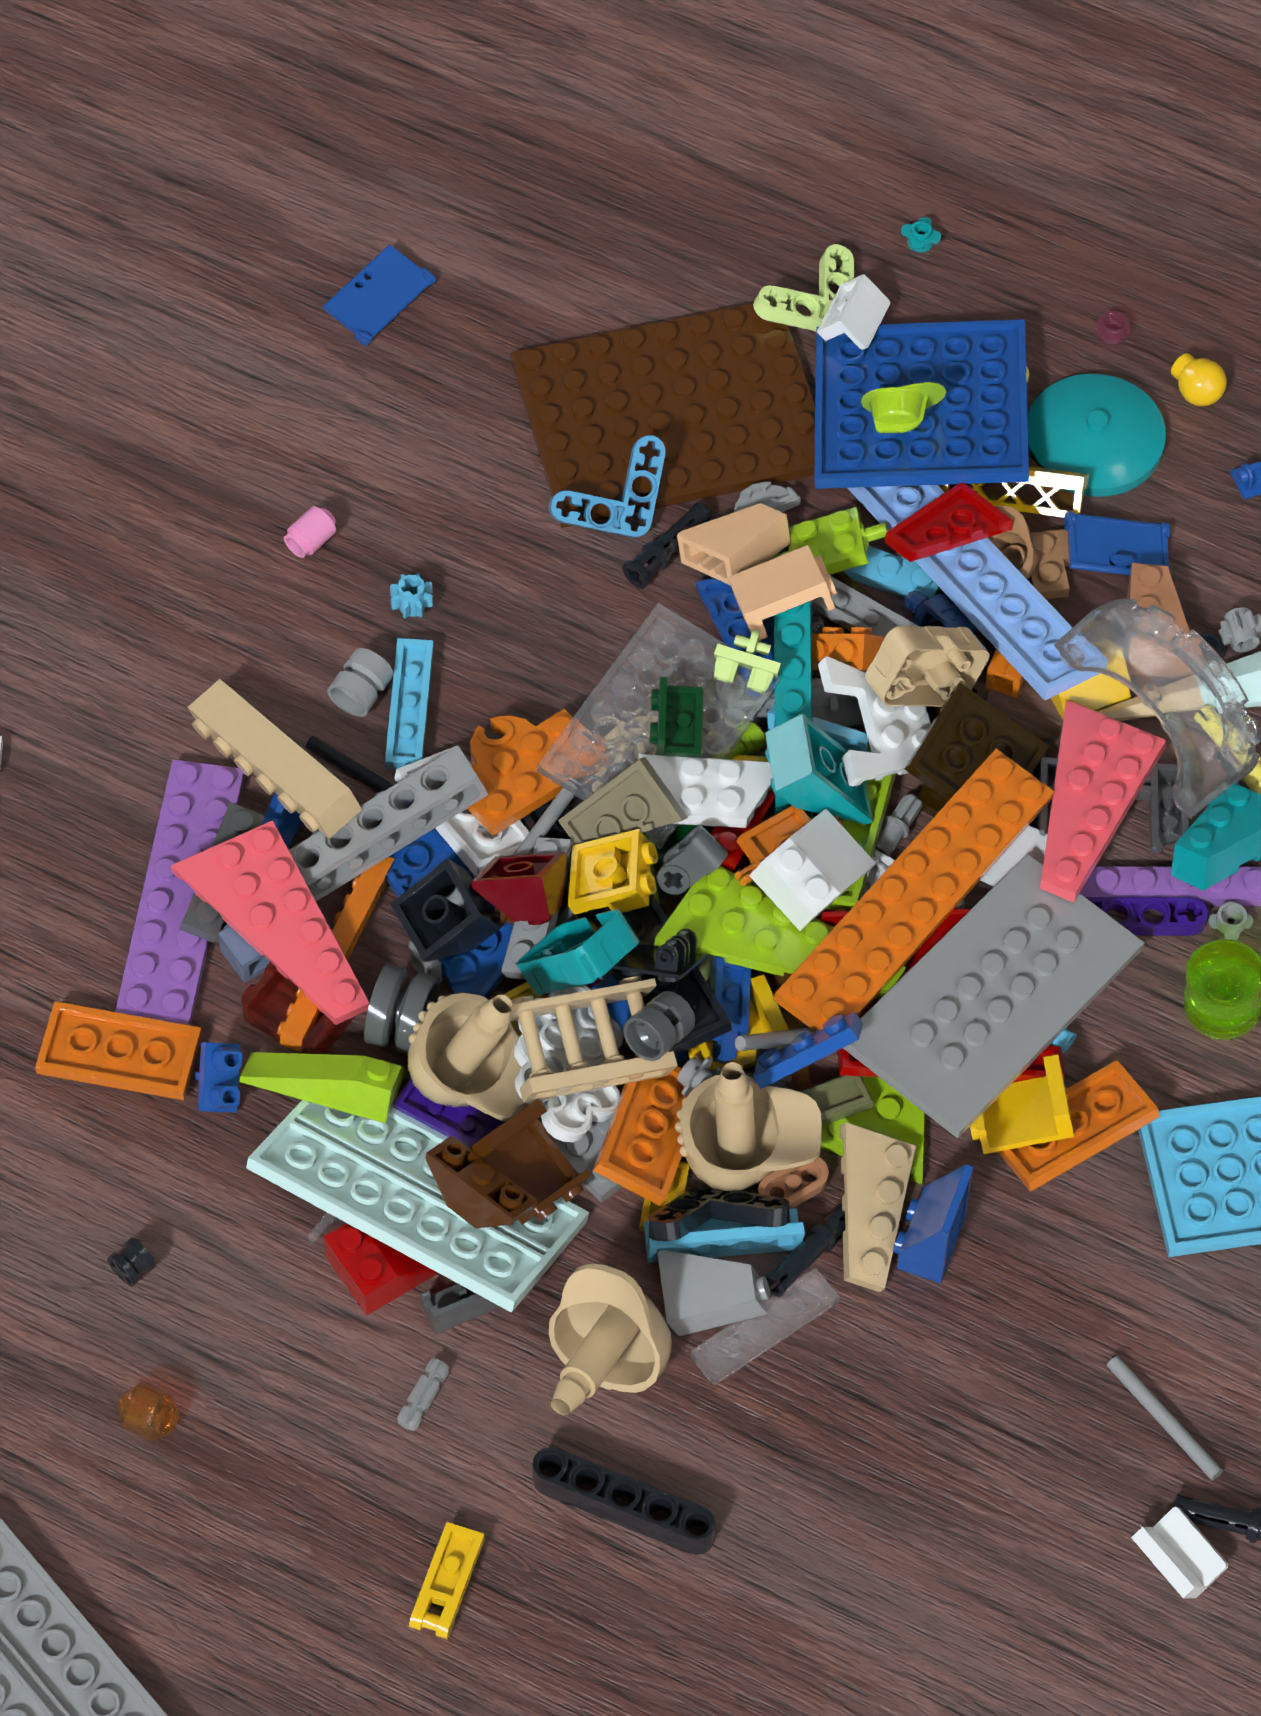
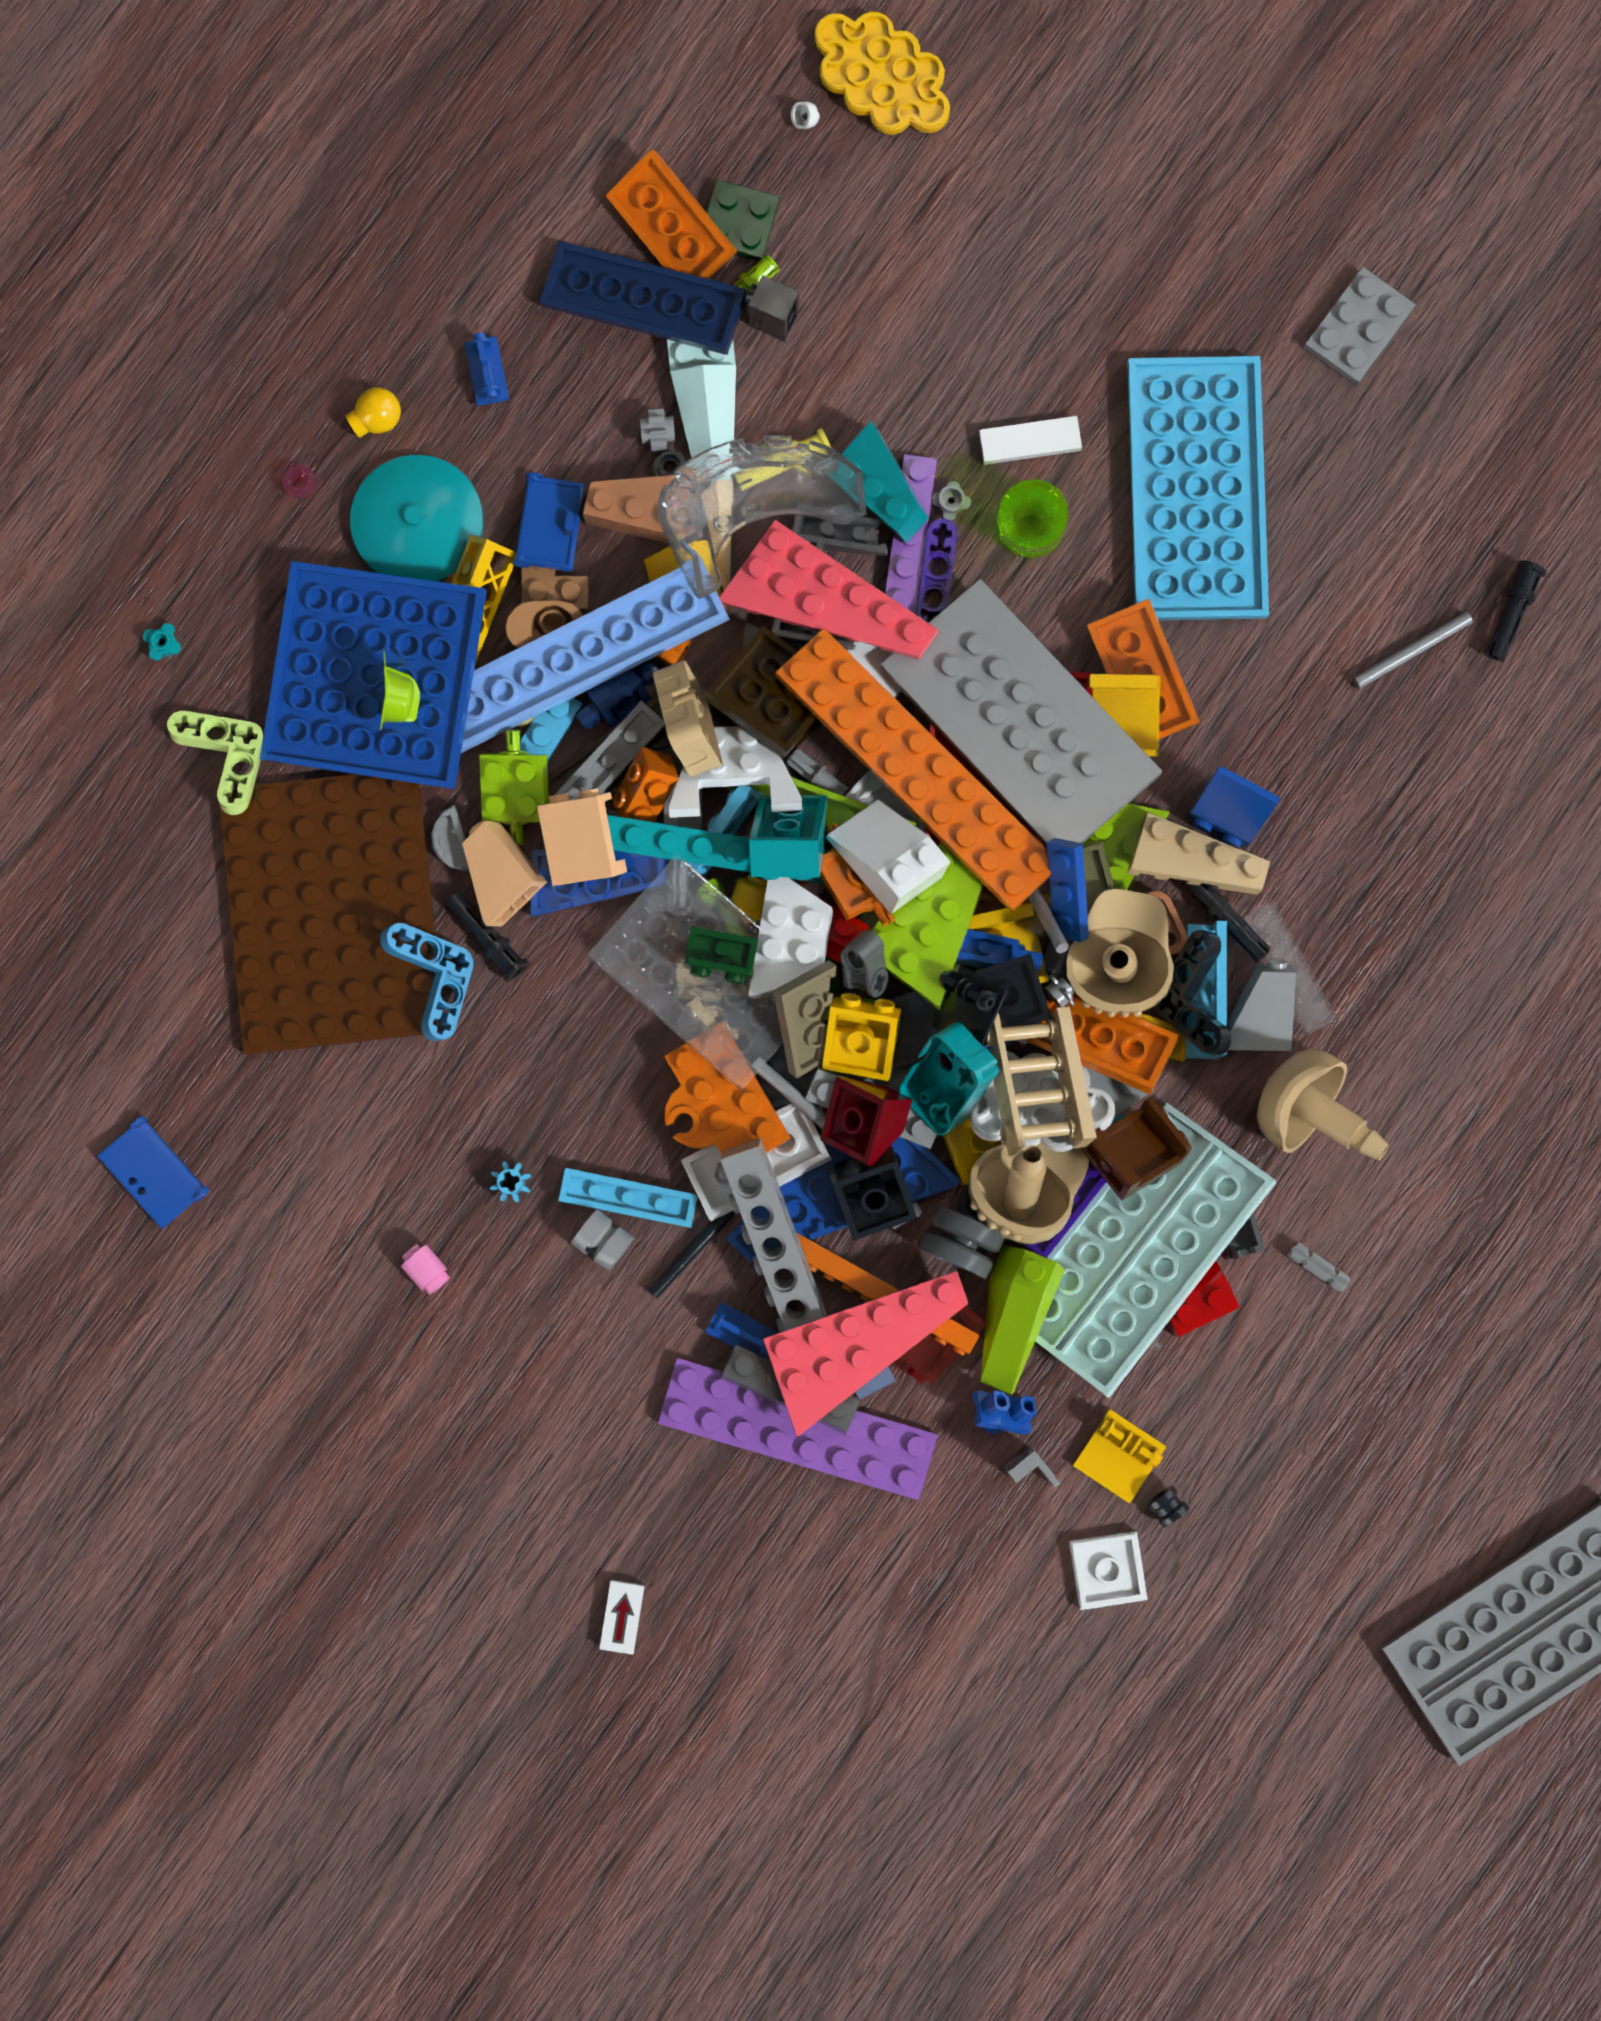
camera: 85 degrees left, 25 degrees up
(54, 1215) = (1108, 1570): none -> white tile
(119, 1050) = (956, 1499): orange plate -> none
(148, 1412) = (1312, 1504): clear orange head -> none
(164, 1109) = (1025, 1463): none -> light grey panel
(184, 1211) = (1120, 1456): none -> yellow hinge
(274, 760) = (688, 1330): tan brick -> none
(447, 1579) = (1490, 1266): yellow plate -> none
(475, 1187) = (1160, 1195): reddish brown slope -> none
(633, 1516) = (1454, 1101): black beam -> none
(659, 1026) = (1046, 1020): dark grey wheel -> none
(762, 669) = (662, 879): yellowish green hips -> none
(855, 311) = (257, 720): white panel -> none
(947, 523) = (521, 673): red wing -> none
(1181, 1553) = (1542, 661): white panel -> none

